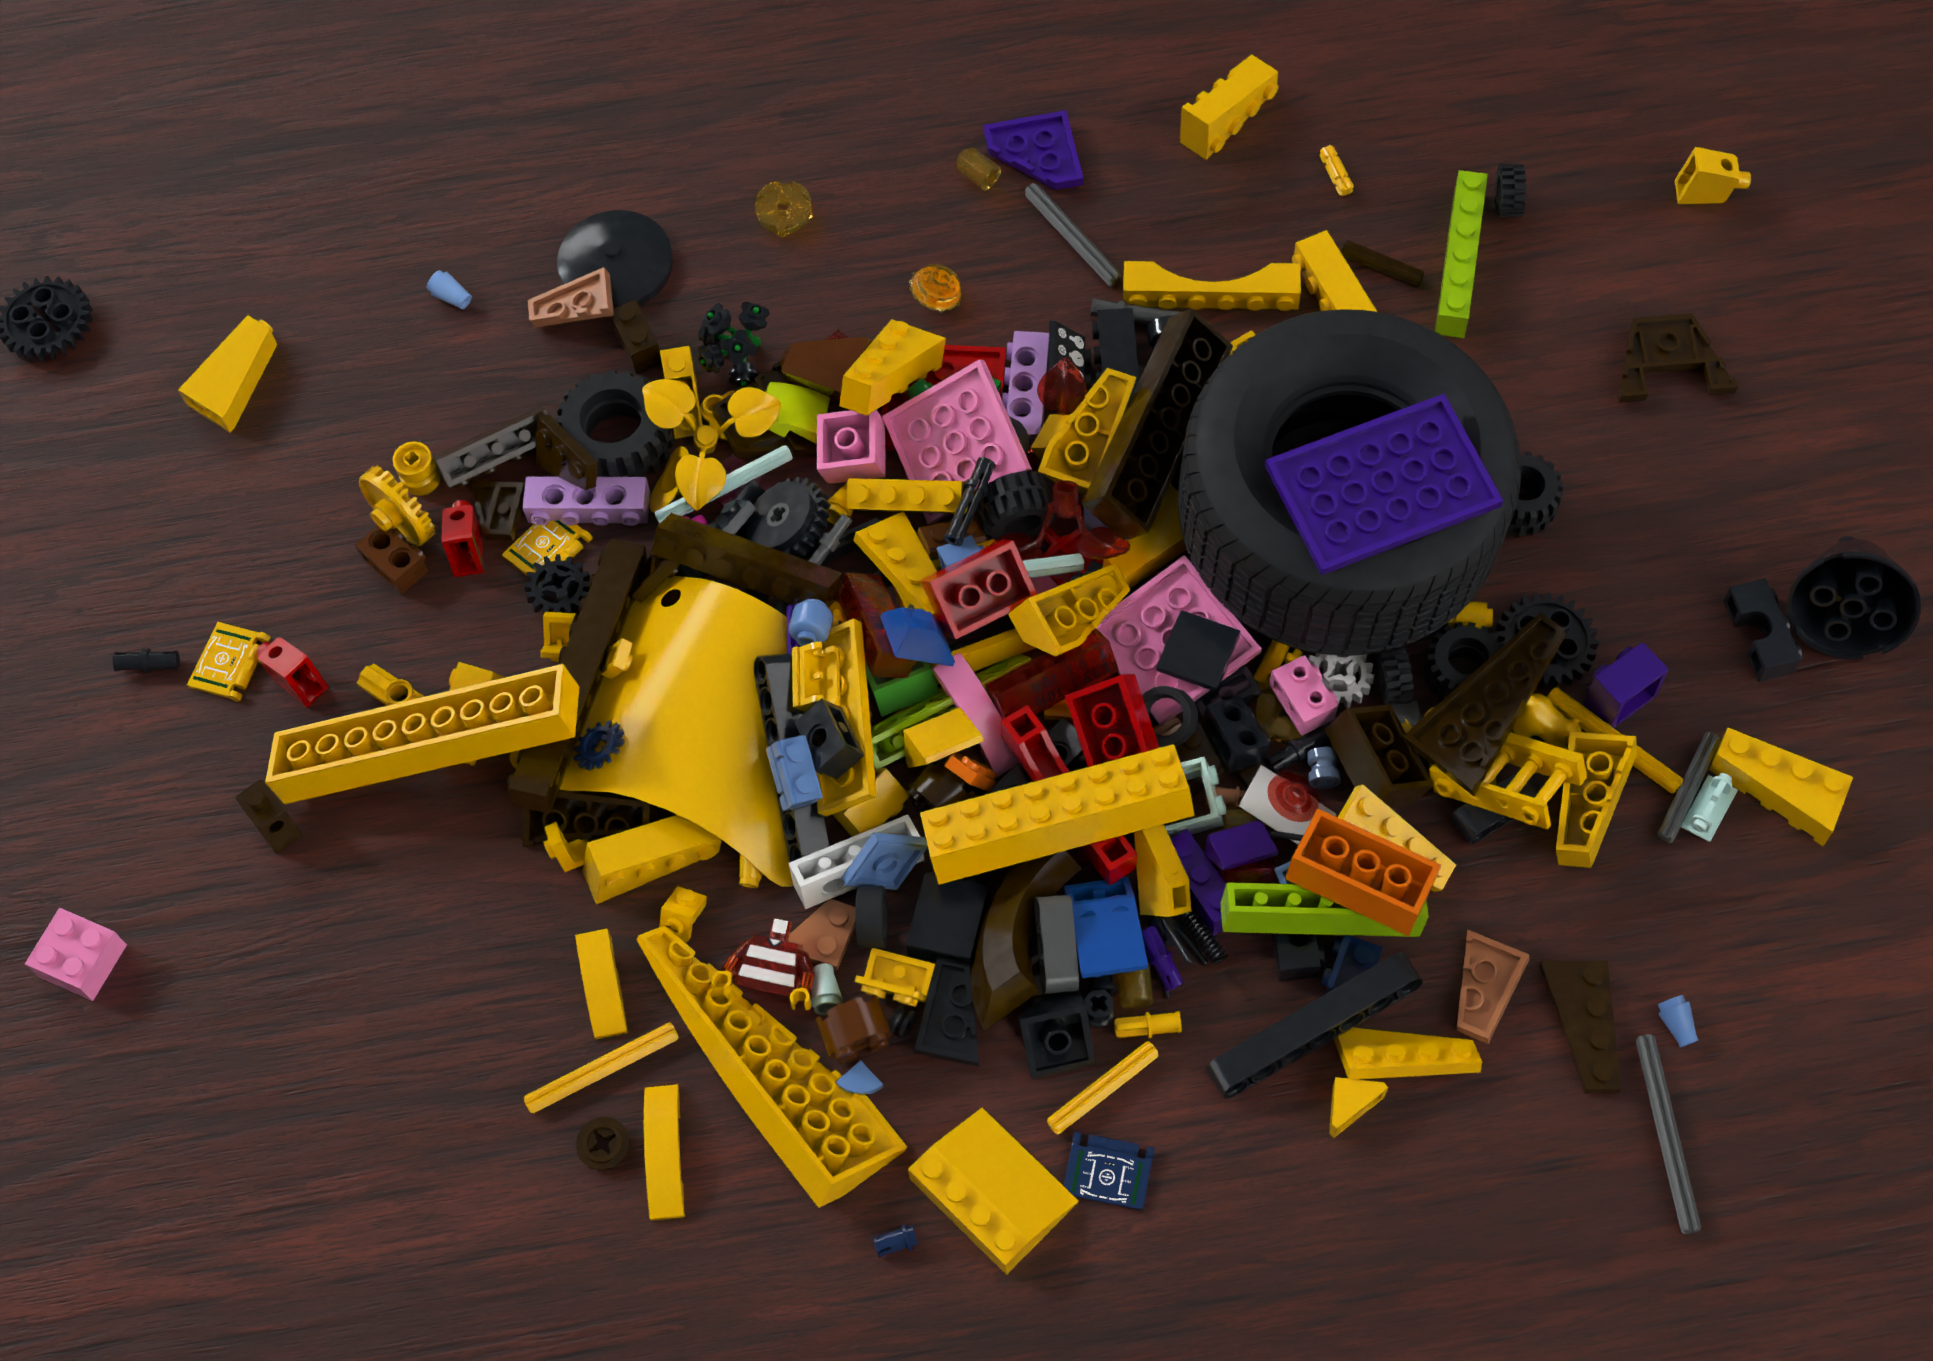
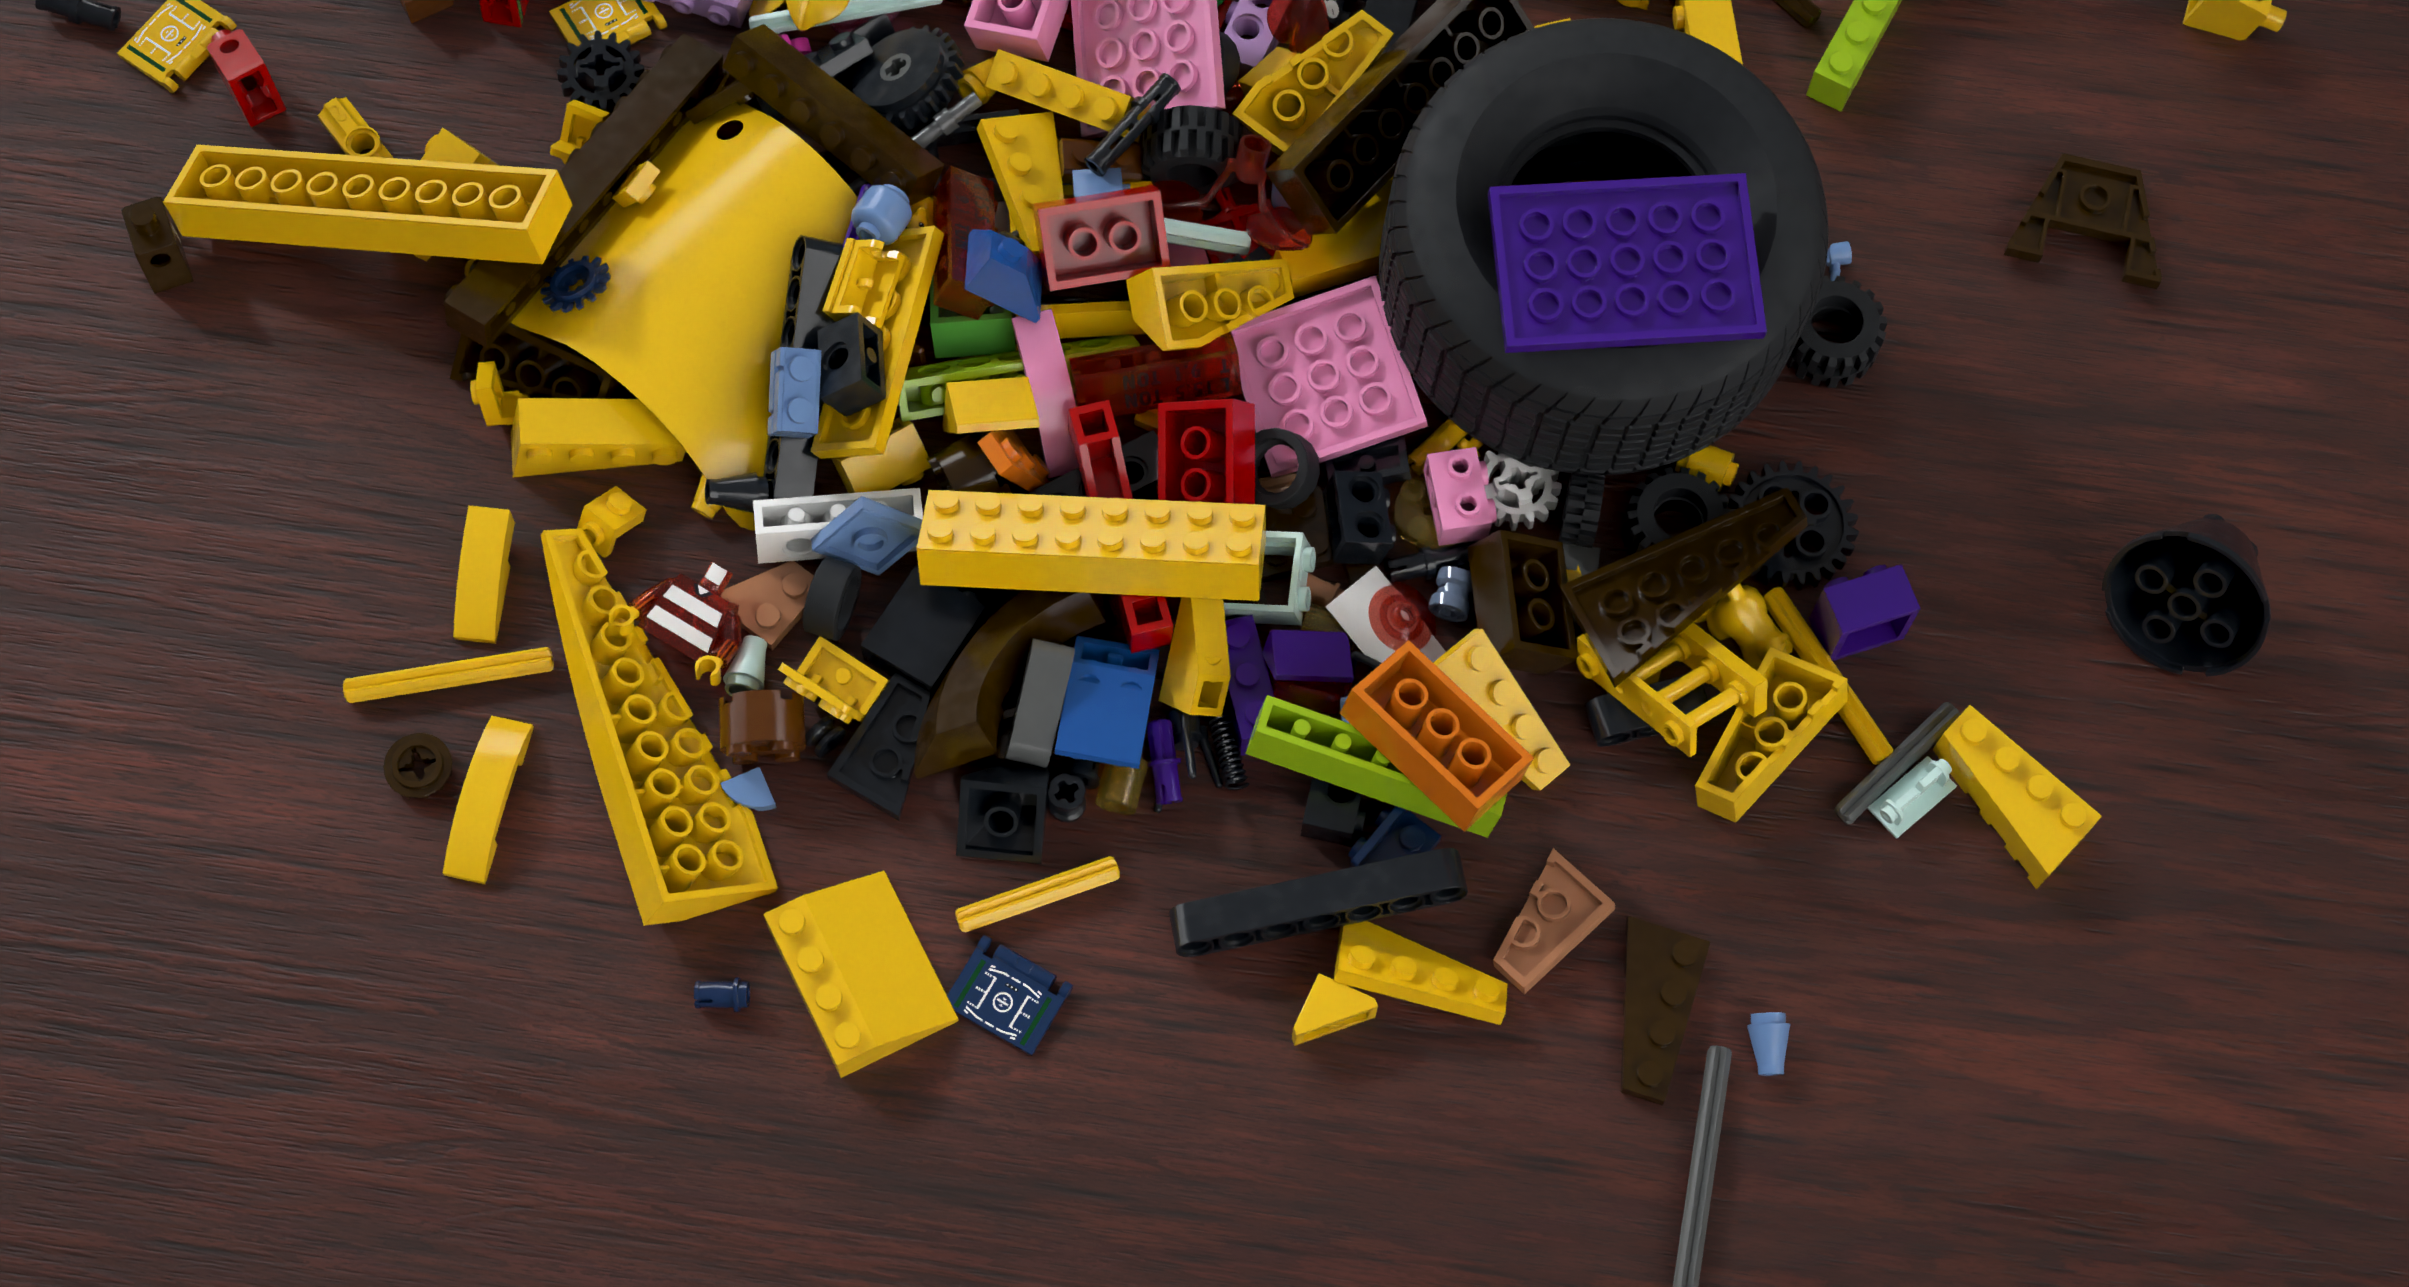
camera: 10 degrees right, 5 degrees up
(773, 860) = (737, 491): none -> black cone
(1148, 1025) = (1119, 837): yellow axle -> none
(1198, 650) = (1347, 400): black slope -> none
(1757, 606) = (2071, 565): black arch -> none

